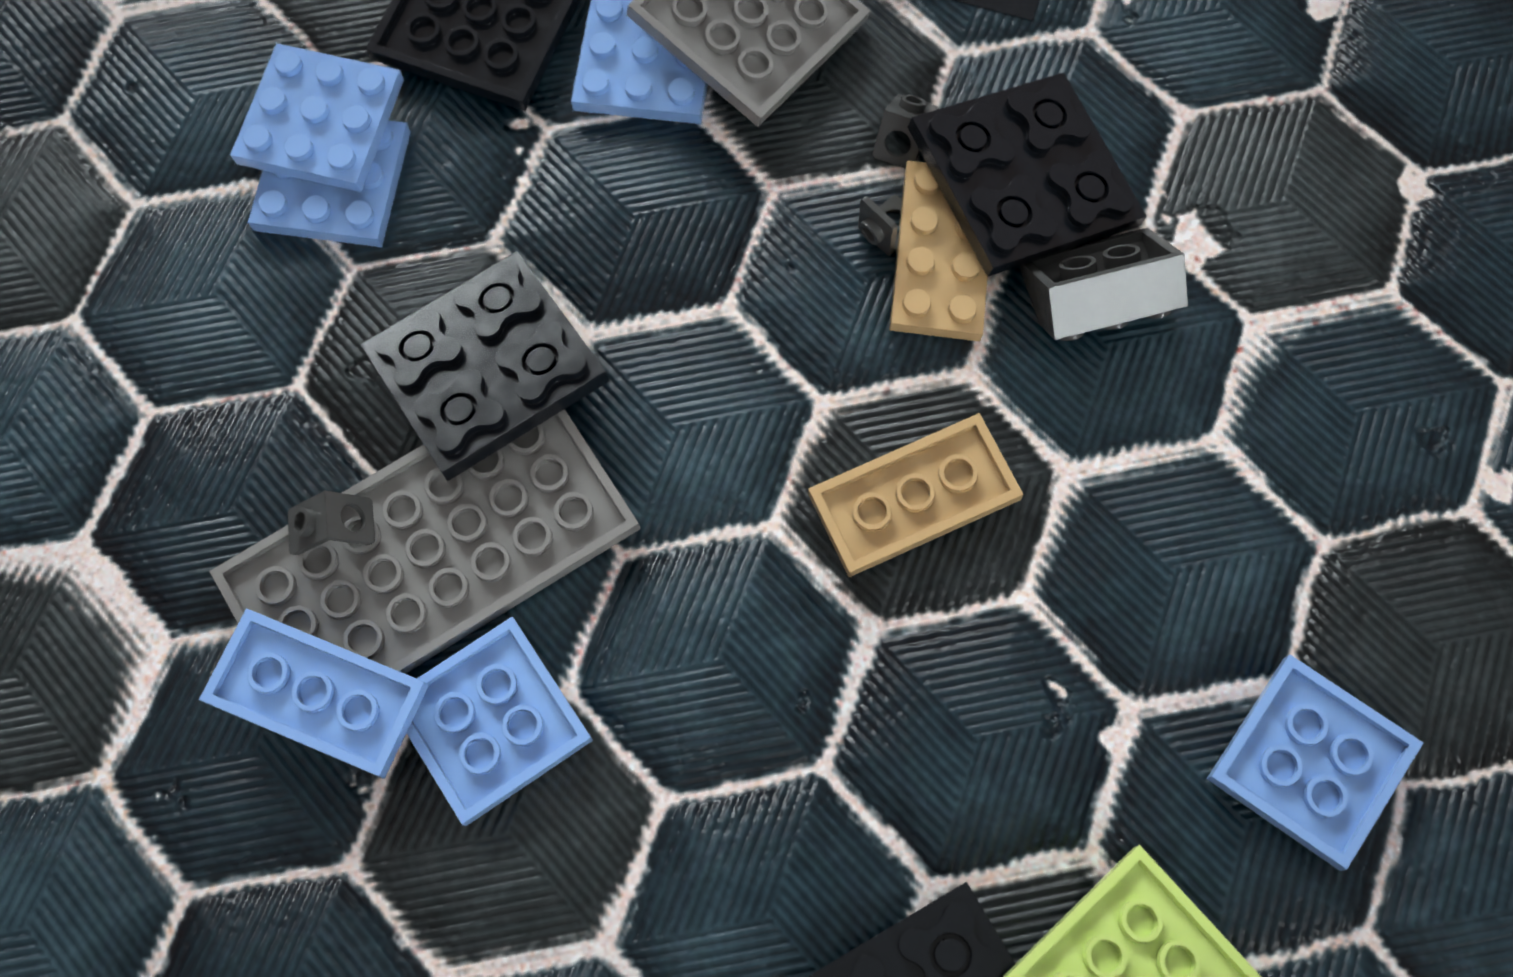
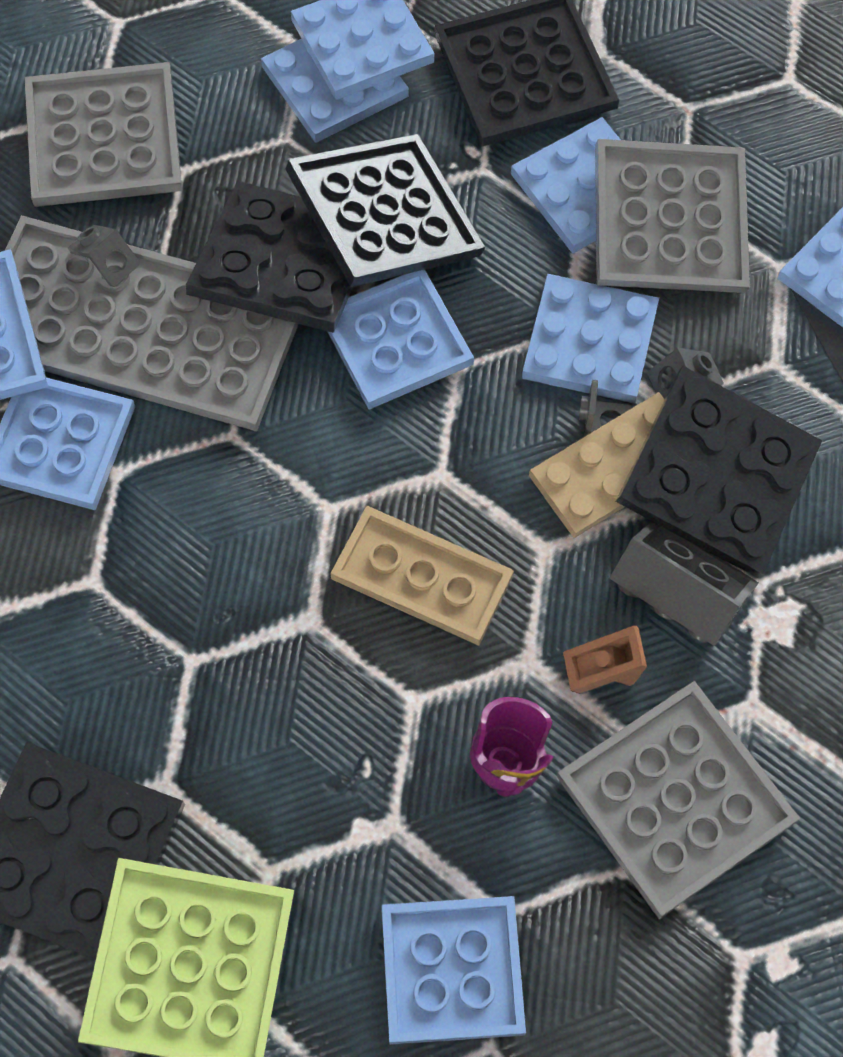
camera: 45 degrees right, 5 degrees down
(188, 428) = (102, 134): none -> light grey piece
(520, 239) = (384, 209): none -> piece
(660, 331) = (399, 339): none -> light blue plate
(800, 174) = (590, 335): none -> light blue plate
(1132, 403) = (606, 660): none -> nougat slope
(1145, 532) = (510, 745): none -> magenta helmet
(1298, 449) = (677, 799): none -> light grey piece

